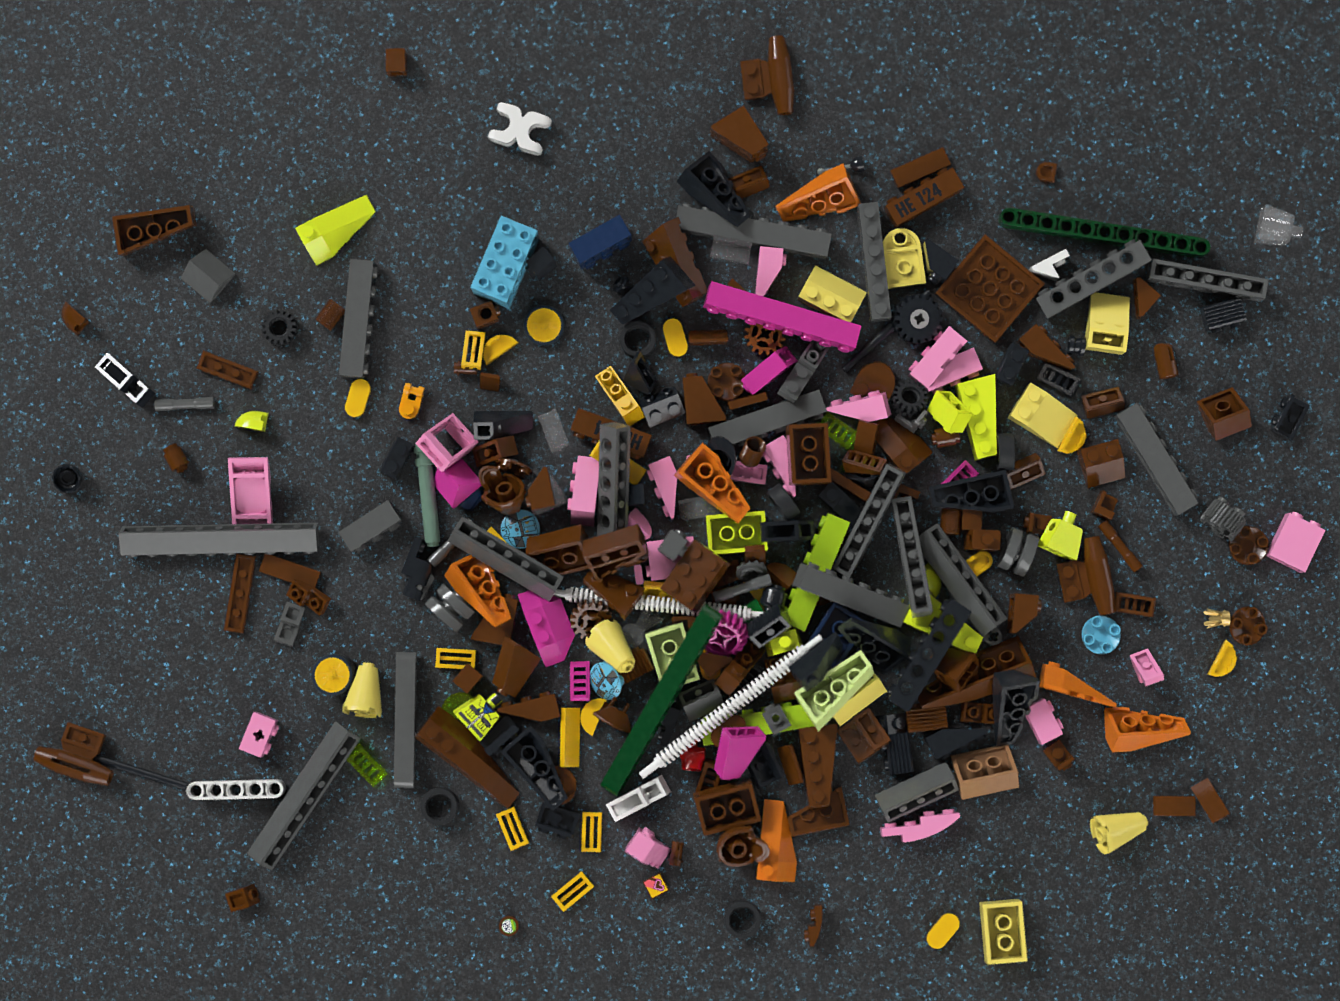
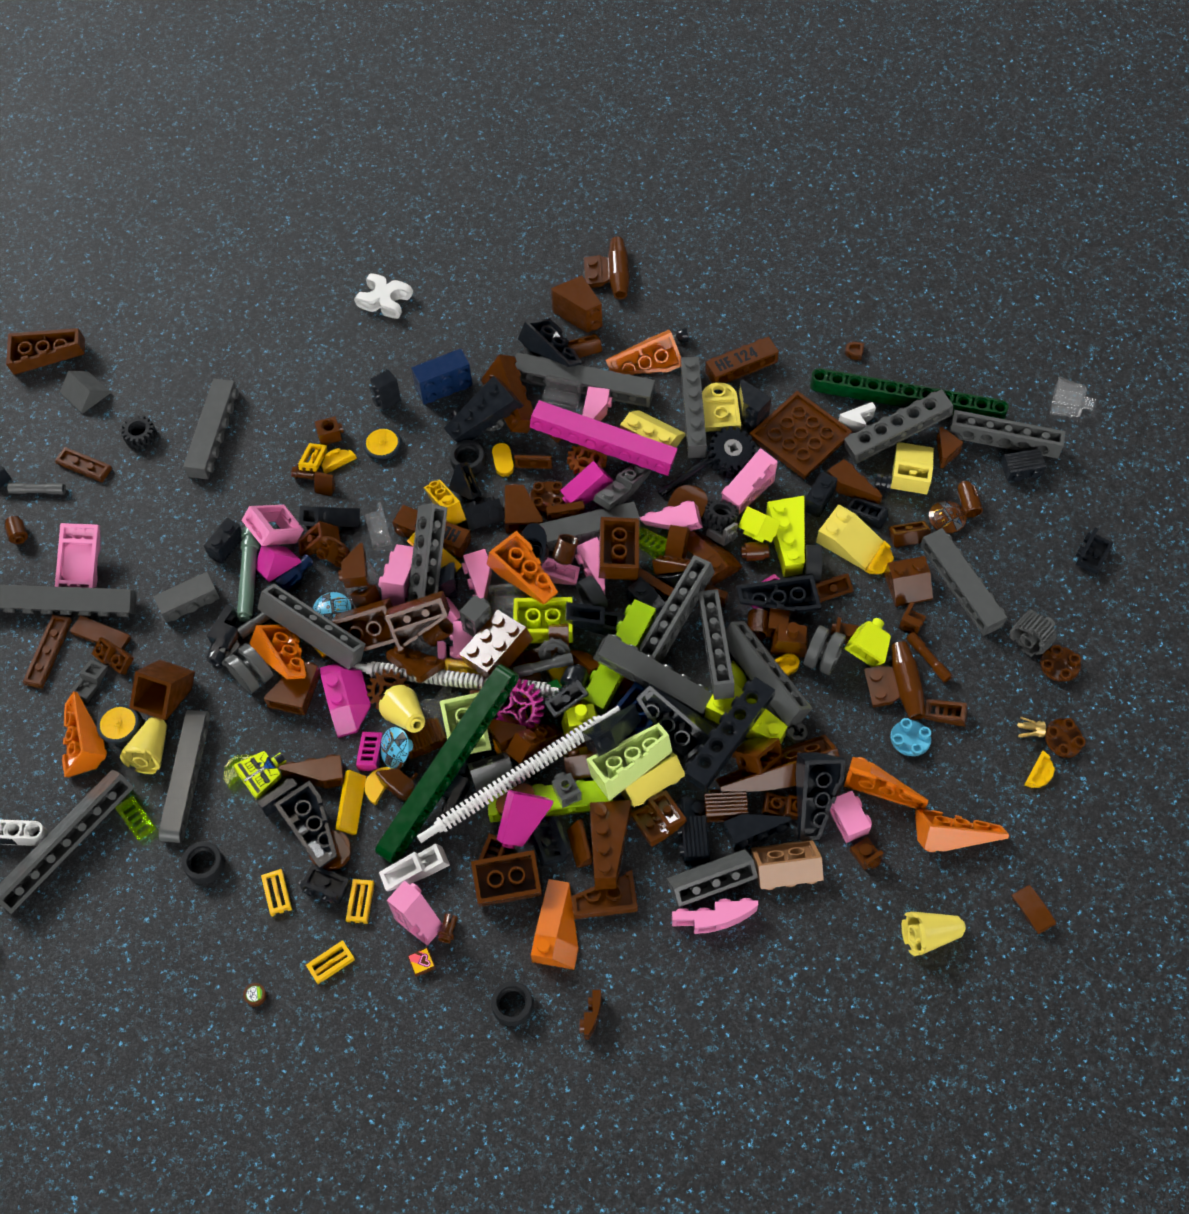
camera: 10 degrees right, 25 degrees down
(253, 420) = (96, 506): neon yellow brick -> none
(258, 723) = (22, 784): bright pink brick -> none
(299, 694) = (83, 742): none -> orange wedge
(330, 314) = (186, 423): reddish brown piece -> none
(333, 229) = (200, 361): neon yellow wedge -> none
(357, 398) = (198, 492): yellow tile -> none
(367, 634) = (160, 688): none -> reddish brown slope
(396, 62) = (285, 244): reddish brown panel -> none
(409, 408) = (243, 500): light orange plate -> none
(438, 658) = (248, 715): yellow tile -> none
(464, 752) = (239, 811): reddish brown wedge -> none
(467, 678) = (255, 738): reddish brown panel -> none
(501, 492) = (317, 572): reddish brown head -> none
(505, 262) = (346, 388): medium azure brick -> none
(513, 667) = (303, 727): reddish brown slope -> none
(555, 519) = (365, 596): none -> reddish brown brick
(693, 758) = (476, 829): red piece -> none
(740, 847) = (516, 918): reddish brown head -> none
(920, 167) = (737, 340): reddish brown tile -> none
(942, 930) = (735, 1033): yellow tile -> none
(961, 366) = (770, 490): bright pink slope -> none
(1003, 931) = (803, 1034): light yellow brick -> none
(1022, 610) = (829, 704): reddish brown slope -> none
(1141, 381) = (947, 516): none -> reddish brown dish
(1146, 667) = (959, 771): bright pink slope -> none
(1174, 806) = (994, 912): reddish brown slope -> none
(1224, 413) = (1030, 546): reddish brown slope -> none
(1295, 542) = (1108, 662): bright pink brick -> none

